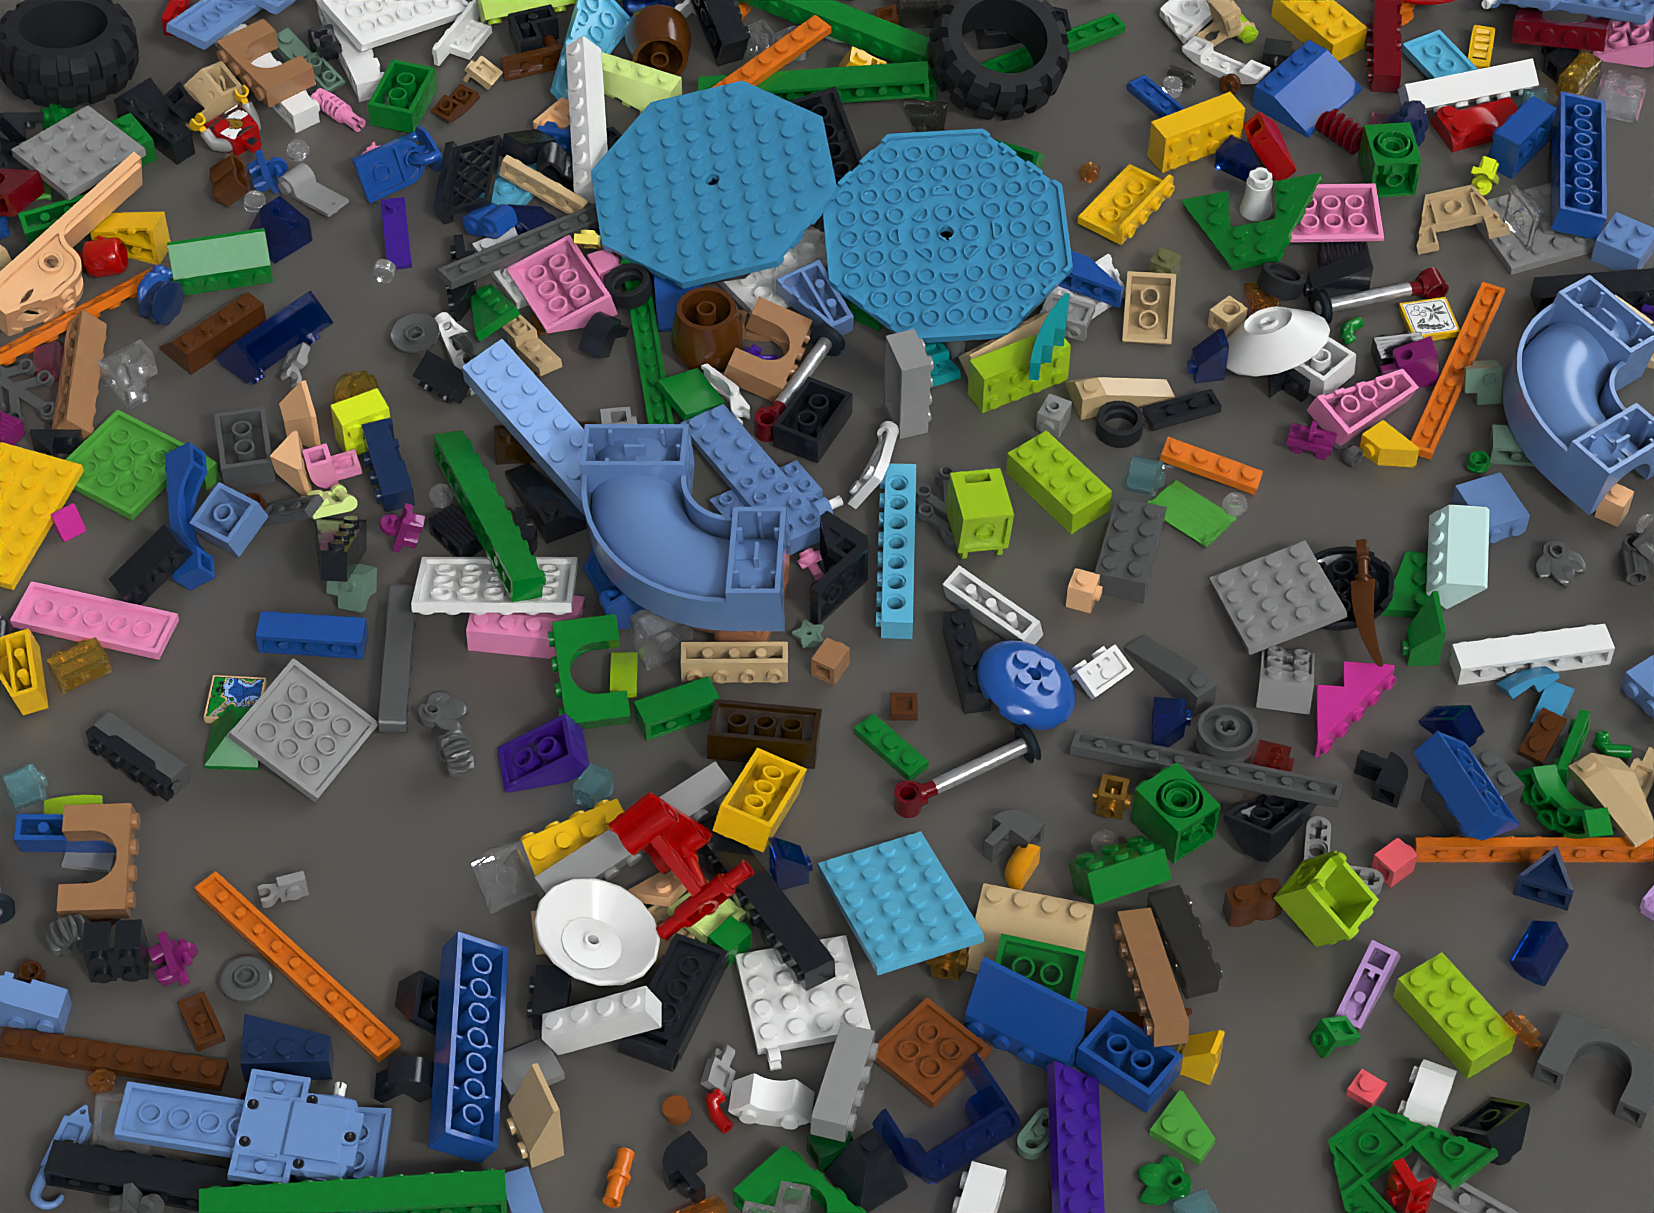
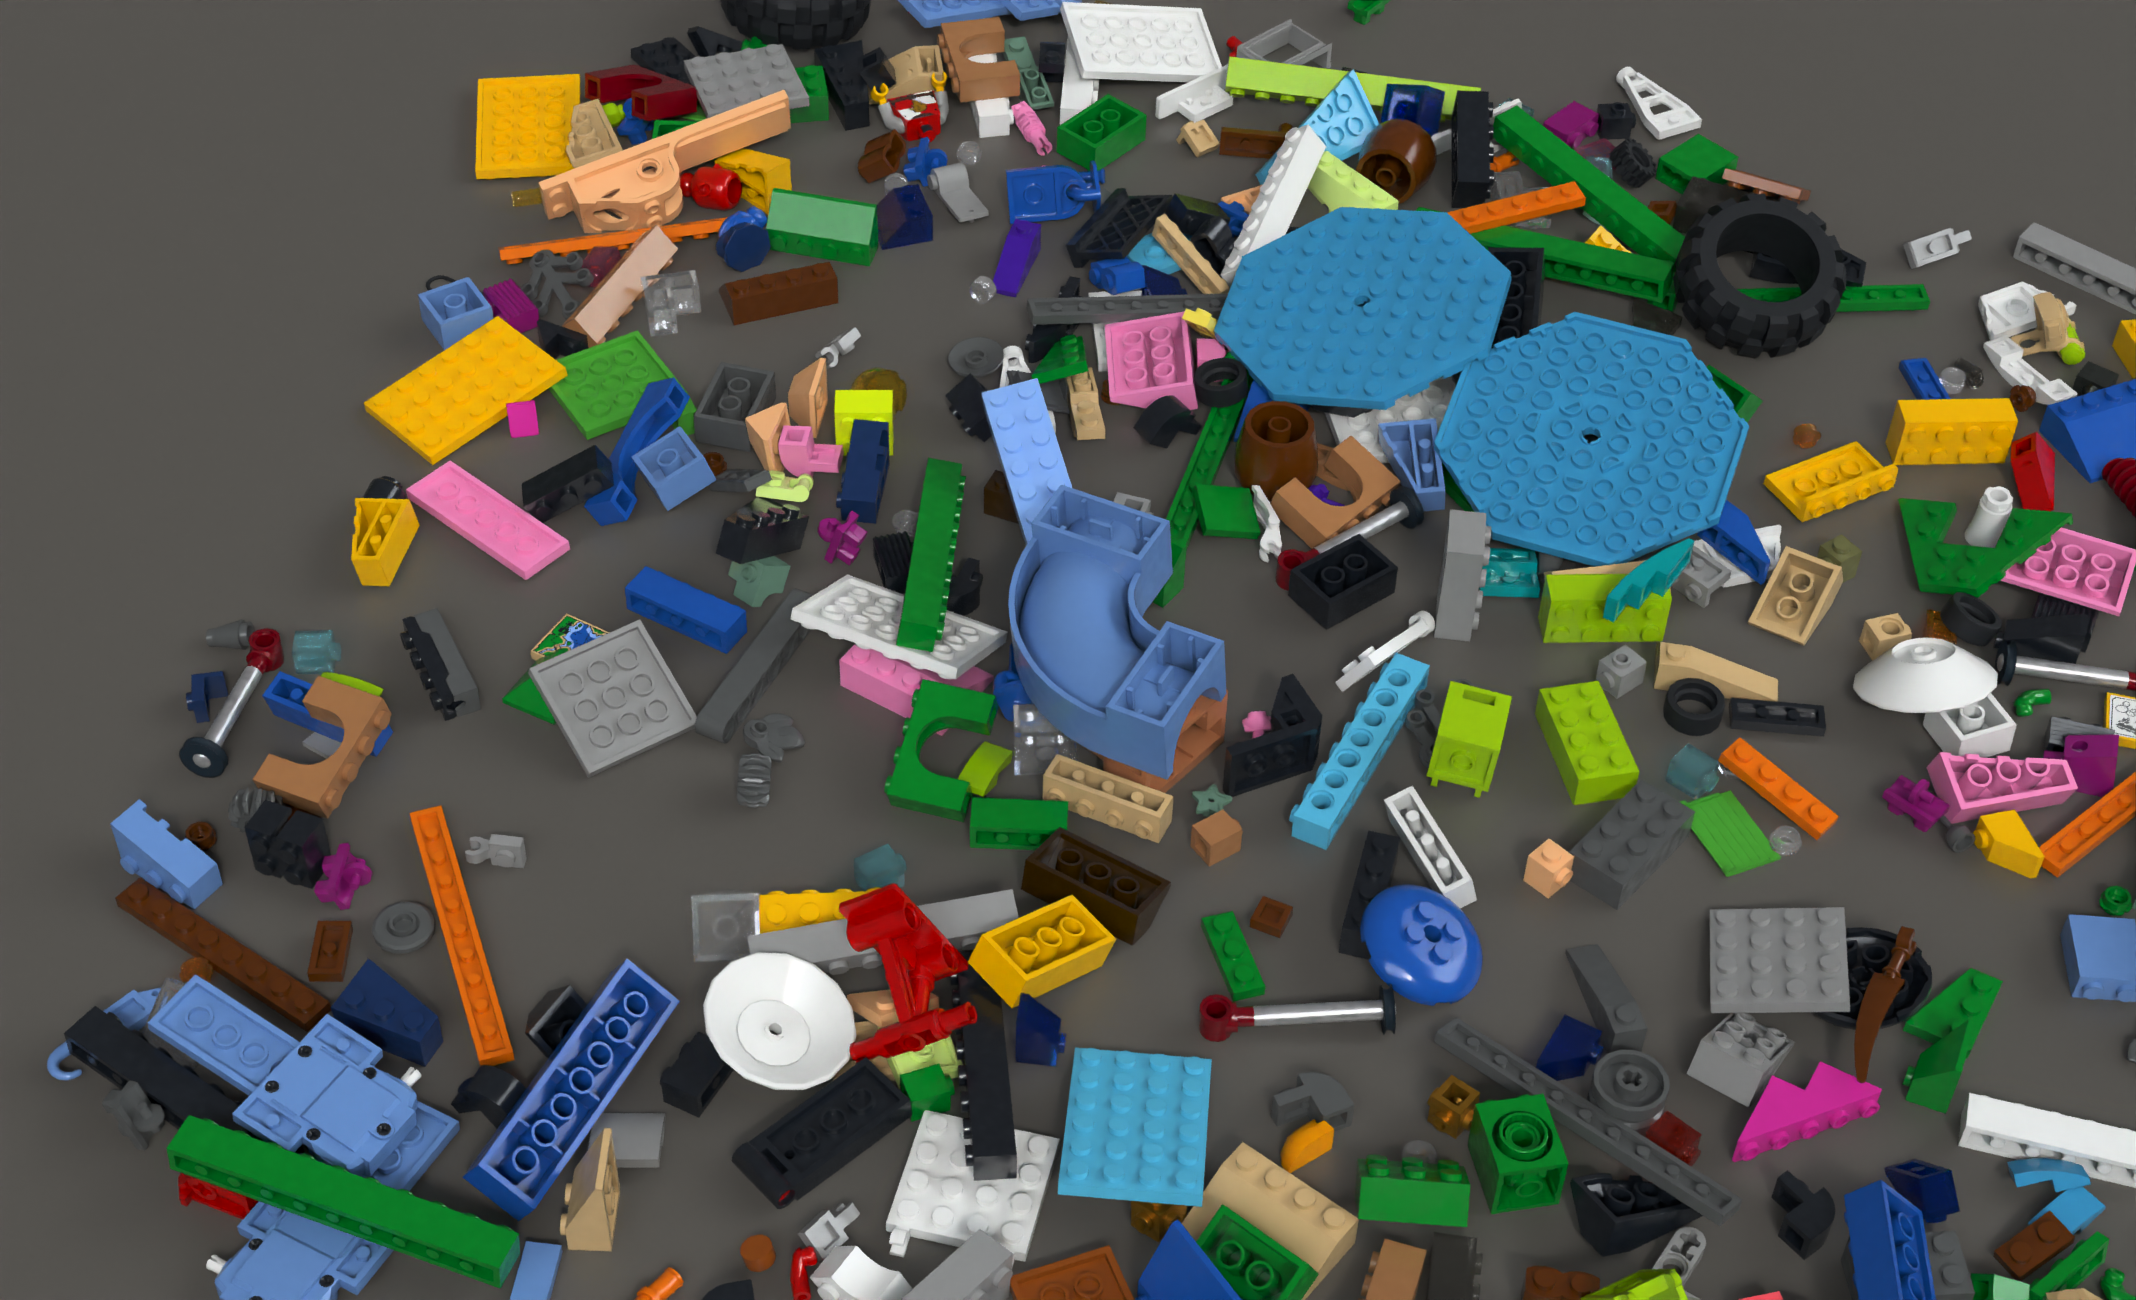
camera: 25 degrees right, 5 degrees down
(79, 665) = (443, 556): clear yellow brick -> none
(274, 338) = (829, 316): clear blue windscreen -> none
(457, 104) = (1152, 161): reddish brown slope -> none
(530, 27) = (1273, 107): black brick -> none
(544, 756) = (848, 819): dark purple slope -> none
(546, 503) = (1003, 553): black wedge -> none
(601, 1020) = (726, 1117): white brick -> none
(756, 478) = (1255, 642): medium blue piece -> none
(1102, 672) = (1523, 964): white bracket -> none
(1209, 358) = (1837, 672): clear blue slope -> none
(1236, 158) = (1985, 470): clear blue slope -> none
(1291, 381) = (1925, 730): black slope -> none
(1457, 553) = (2029, 991): light aqua slope -> none

